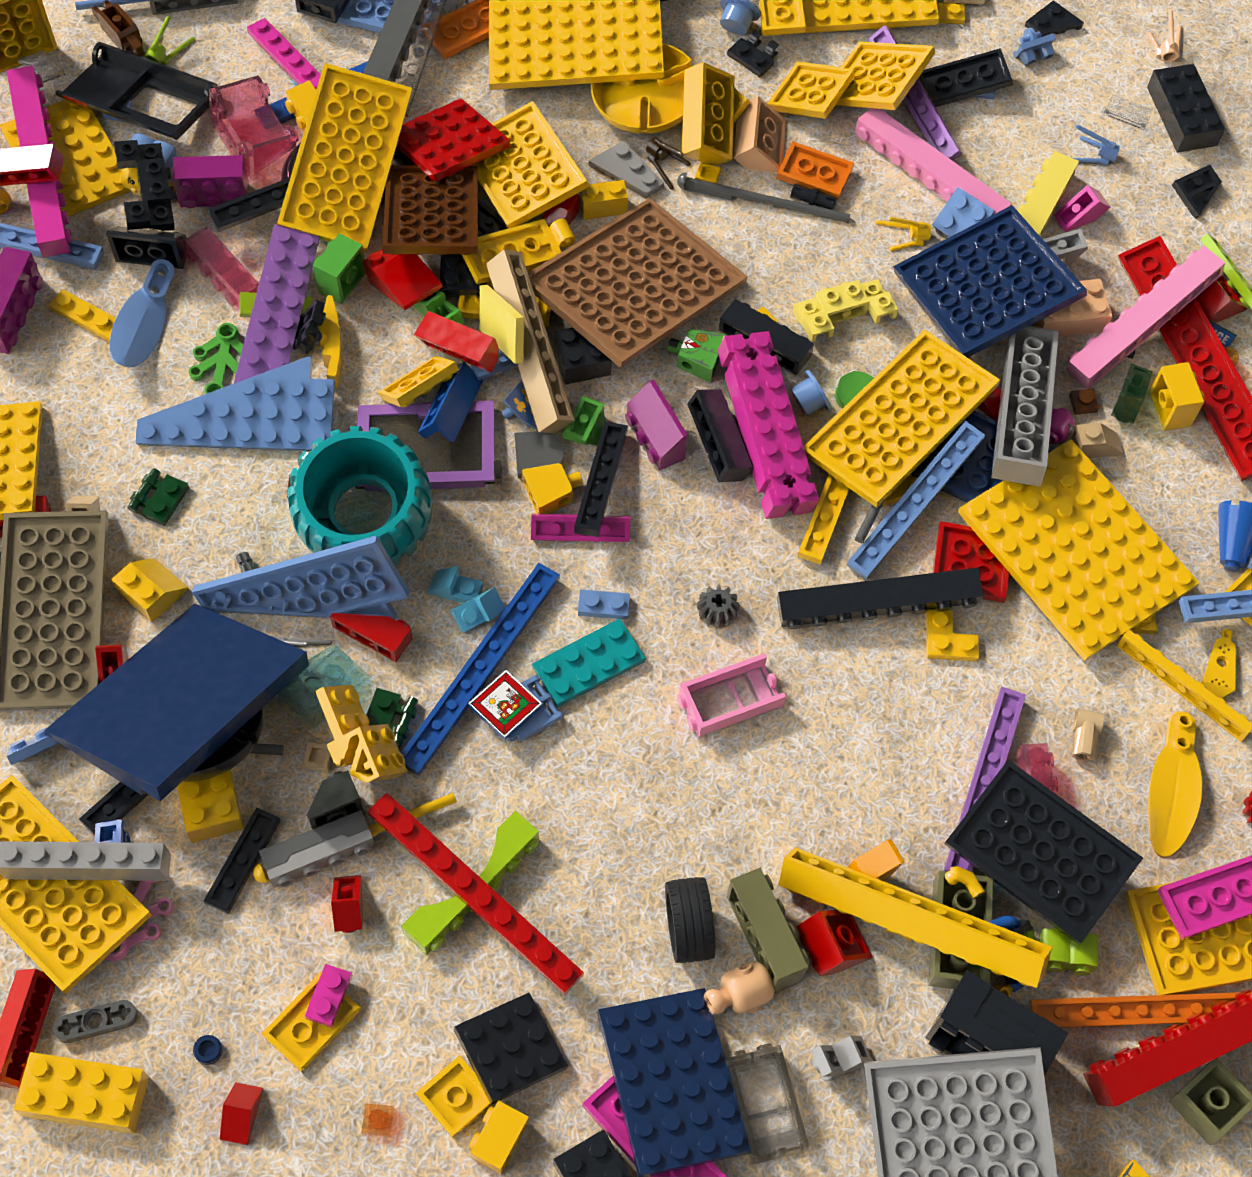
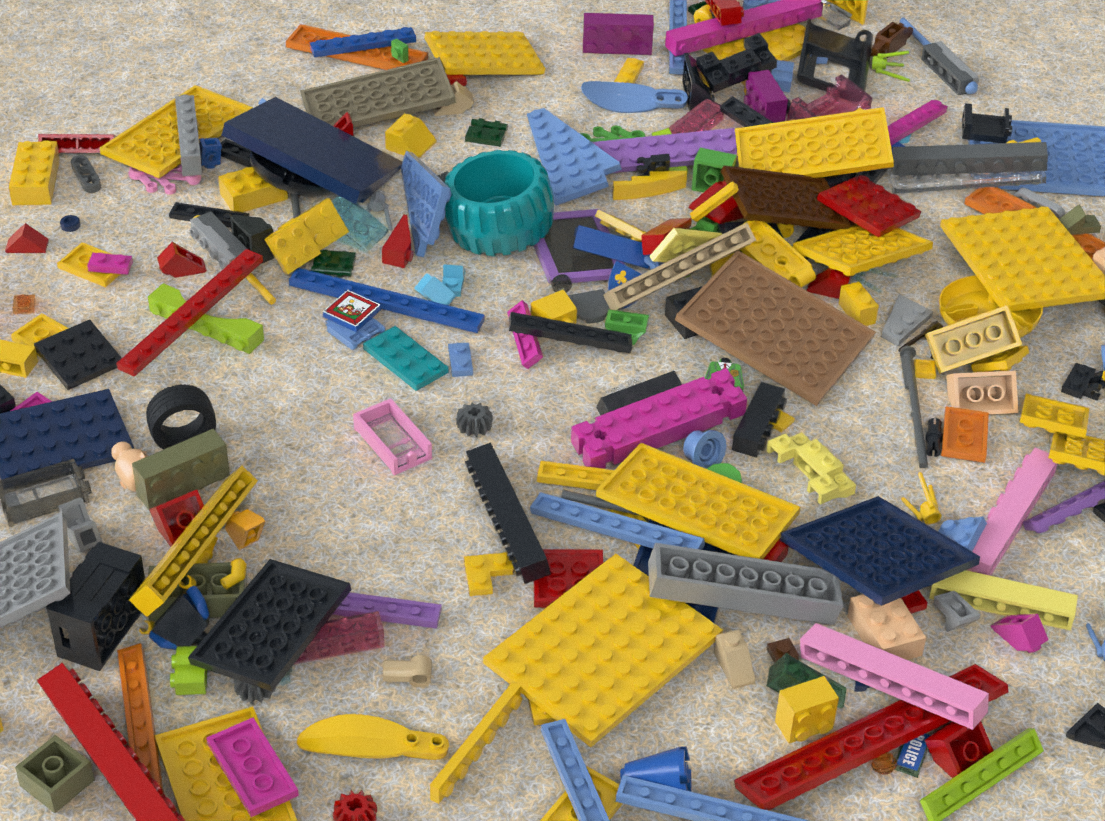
camera: 80 degrees right, 20 degrees down
(429, 275) = (714, 201): none -> yellow axle
(657, 426) = (635, 361): slope -> none
(1061, 425) = (743, 621): dark pink head -> none
(1225, 675) = (498, 772): yellow piece -> none

